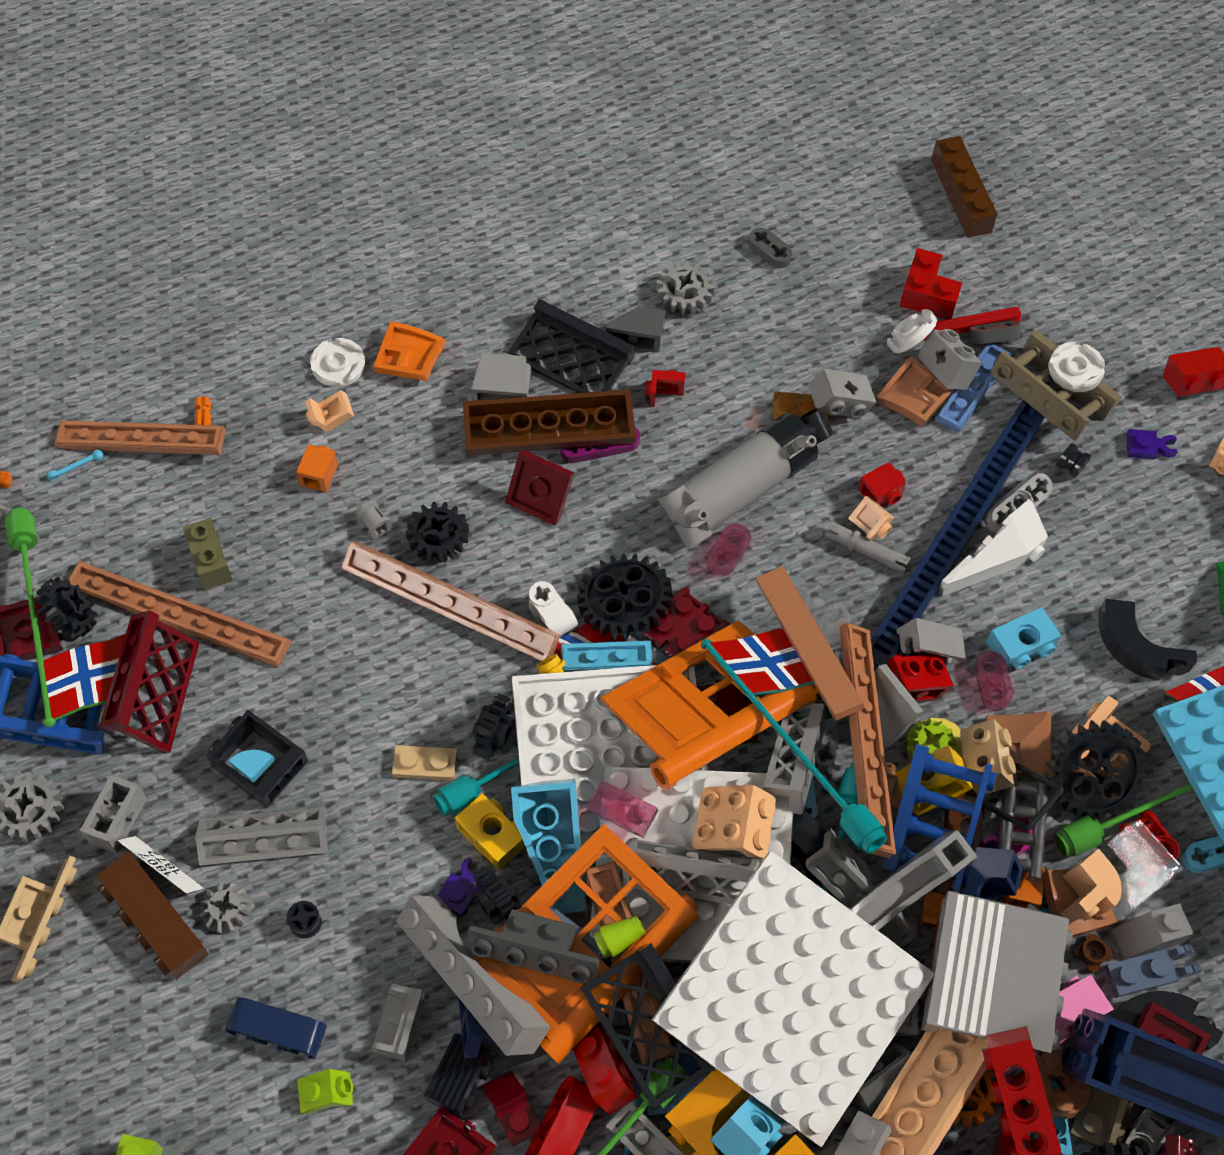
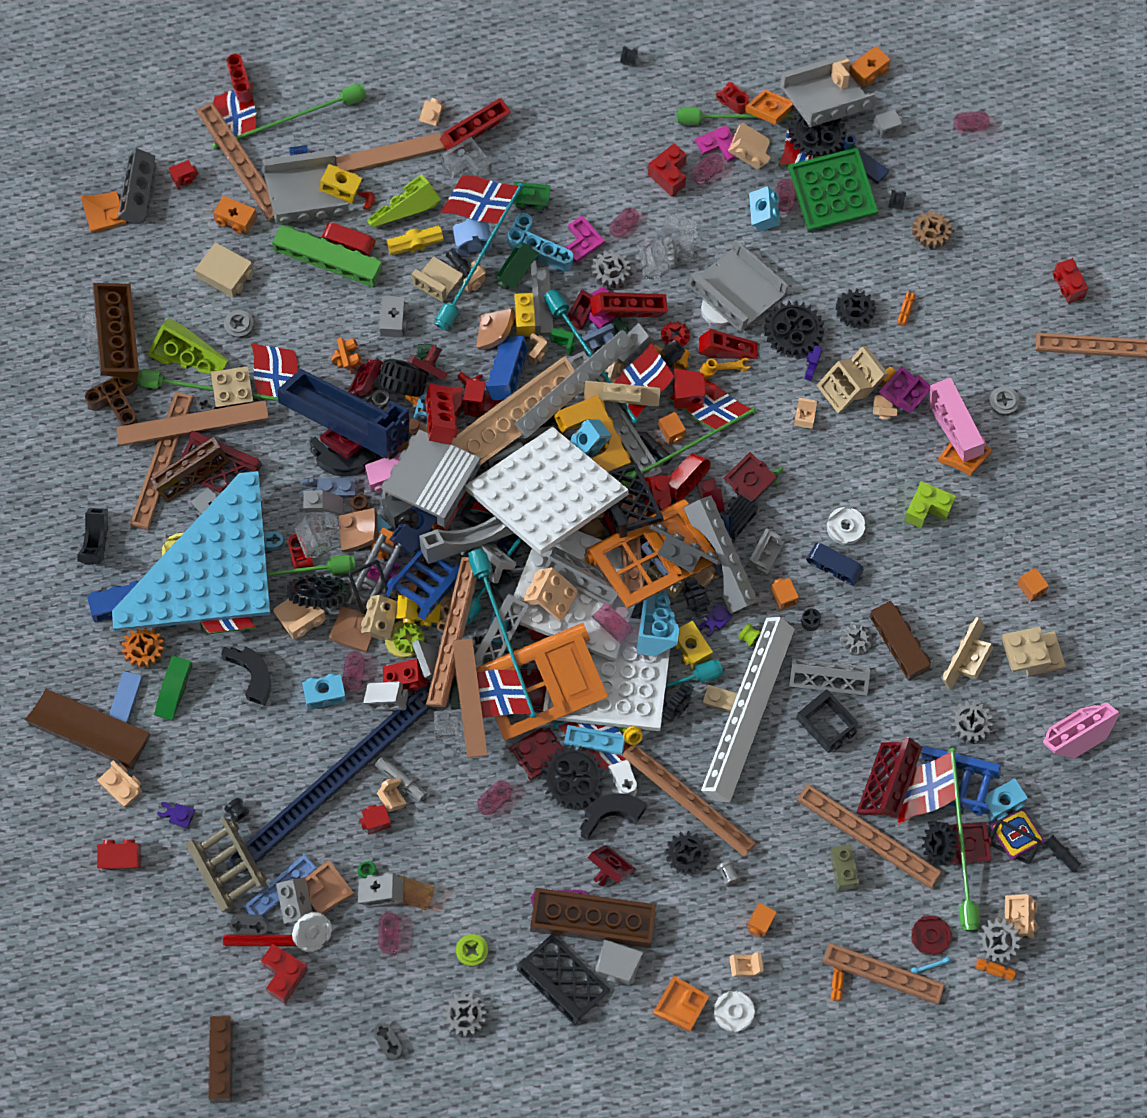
camera: 165 degrees left, 5 degrees up
(79, 510) = (931, 935): none -> dark red tile
(113, 814) = (918, 701): light grey brick -> none
(160, 864) = (892, 669): white sticker -> none
(252, 763) = (831, 709): medium azure tile -> none
(269, 1126) = (846, 516): none -> white plate
(325, 1090) = (812, 525): lime bracket -> none
(355, 953) = (784, 593): none -> orange brick
(381, 753) = (748, 710): none -> white brick
(400, 869) = (749, 635): none -> lime wheel
(559, 569) = (611, 805): none -> black arch
(618, 936) = (635, 542): lime cone -> none
(640, 327) = (507, 985): dark grey slope -> none
(664, 382) = (501, 935): red bracket -> none
(695, 353) = (471, 940): none -> lime gear
(744, 474) = (467, 842): light grey piece -> none
(811, 361) = (388, 933): none -> clear pink plate
(869, 420) = (364, 866): none -> green plate
(1006, 504) = (285, 794): light grey beam -> none
(1011, 548) = (314, 752): white wedge -> none
(1076, 367) = (208, 869): white tile -> none
(1096, 885) = (347, 524): light nougat brick -> none

